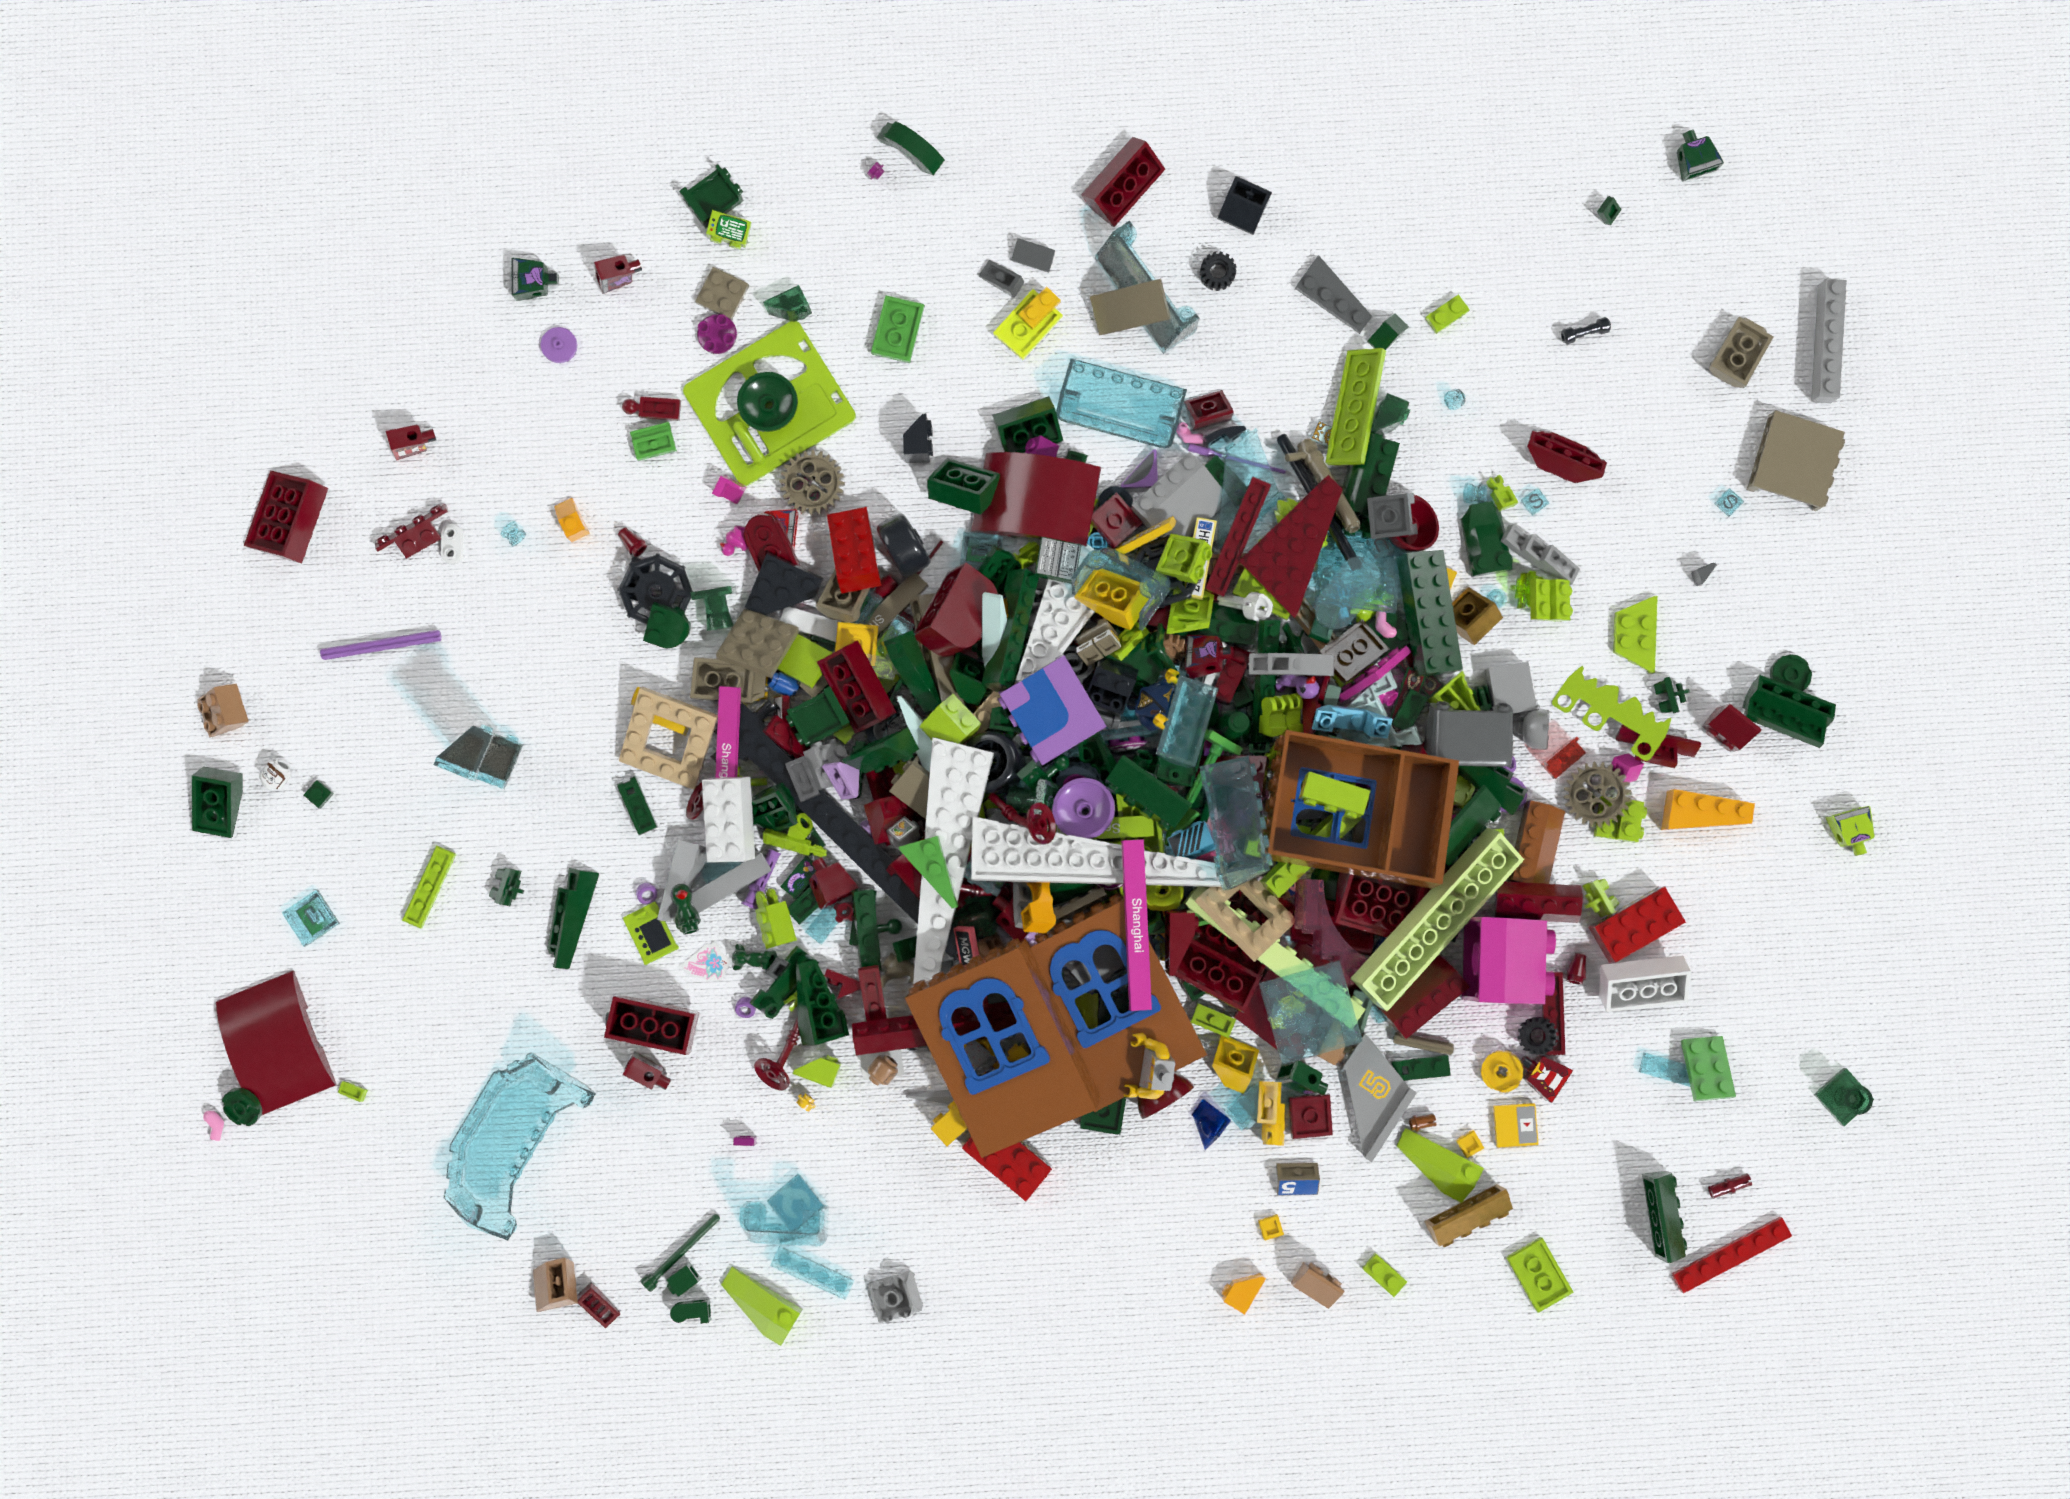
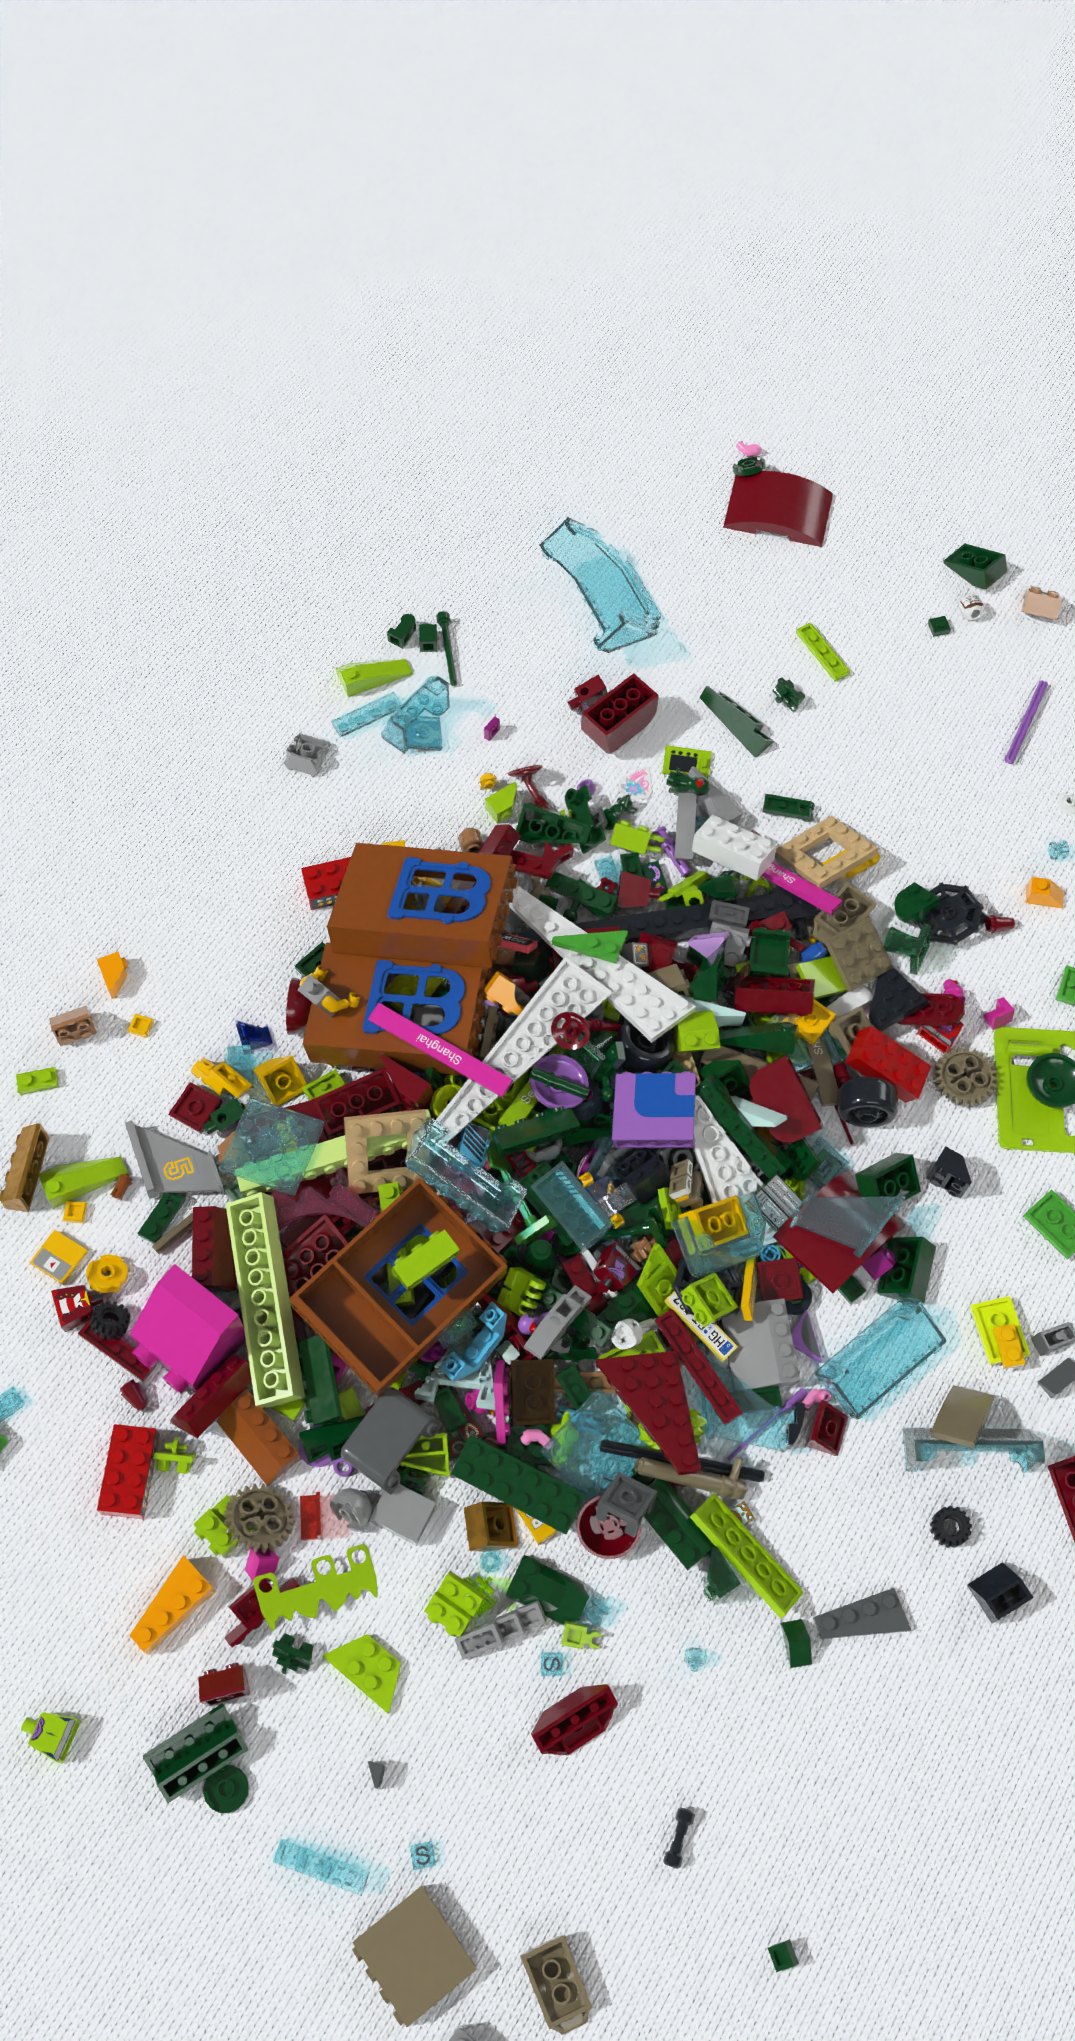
camera: 125 degrees right, 20 degrees down
(310, 918) = (851, 574): clear light blue tile -> none
(352, 1091) = (711, 532): lime piece -> none
(481, 756) = (898, 715): clear smoke windscreen -> none
(555, 1284) = (486, 565): medium nougat slope -> none
(592, 1310) = (463, 584): dark red slope -> none
(644, 887) = (722, 779): medium lavender piece -> none
(863, 729) = (737, 977): none -> dark red sticker
(1034, 491) = (846, 1219): none -> clear light blue piece
(1091, 813) = (565, 1085): none -> dark green pin
(1153, 690) = (616, 1200): none -> clear slope
(1297, 1178) = (159, 1067): panel -> none
(1347, 593) = (586, 1416): clear light blue tile -> none
(1447, 314) = (780, 1714): lime plate -> none
(1644, 983) = (77, 1436): white brick -> none
(1791, 566) = (321, 1867): none -> clear light blue slope

